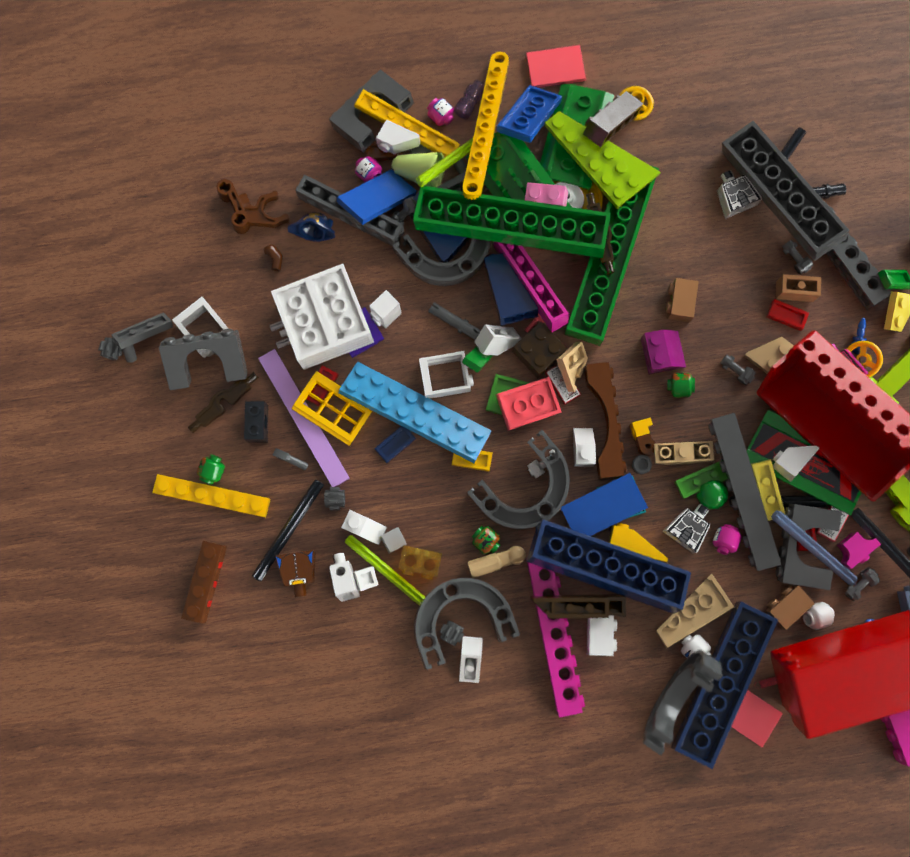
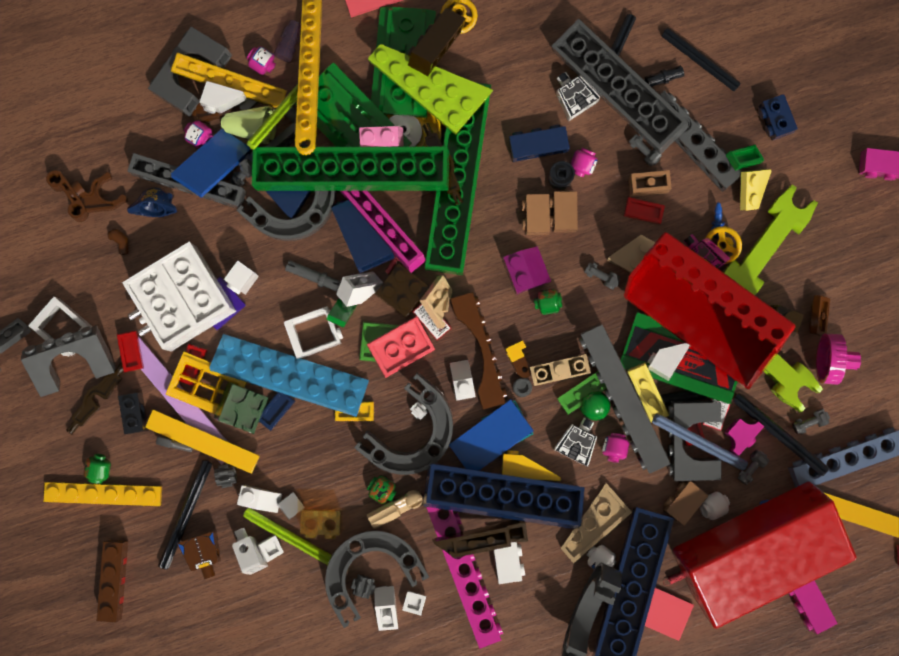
camera: 15 degrees left, 5 degrees up
(264, 362) = (130, 351): none -> red tile
(318, 461) = (202, 441): none -> yellow tile
(362, 434) = (240, 407): none -> dark green piece
(499, 659) = (414, 602): none -> white plate
(529, 114) = (351, 48): blue tile -> none
(694, 233) = (538, 143): none -> dark blue brick
(710, 302) = (564, 212): none -> medium nougat brick
(712, 266) = (561, 175): none -> black wheel
(735, 258) = (584, 162): none -> dark pink head
(863, 181) = (700, 59): none -> black axle

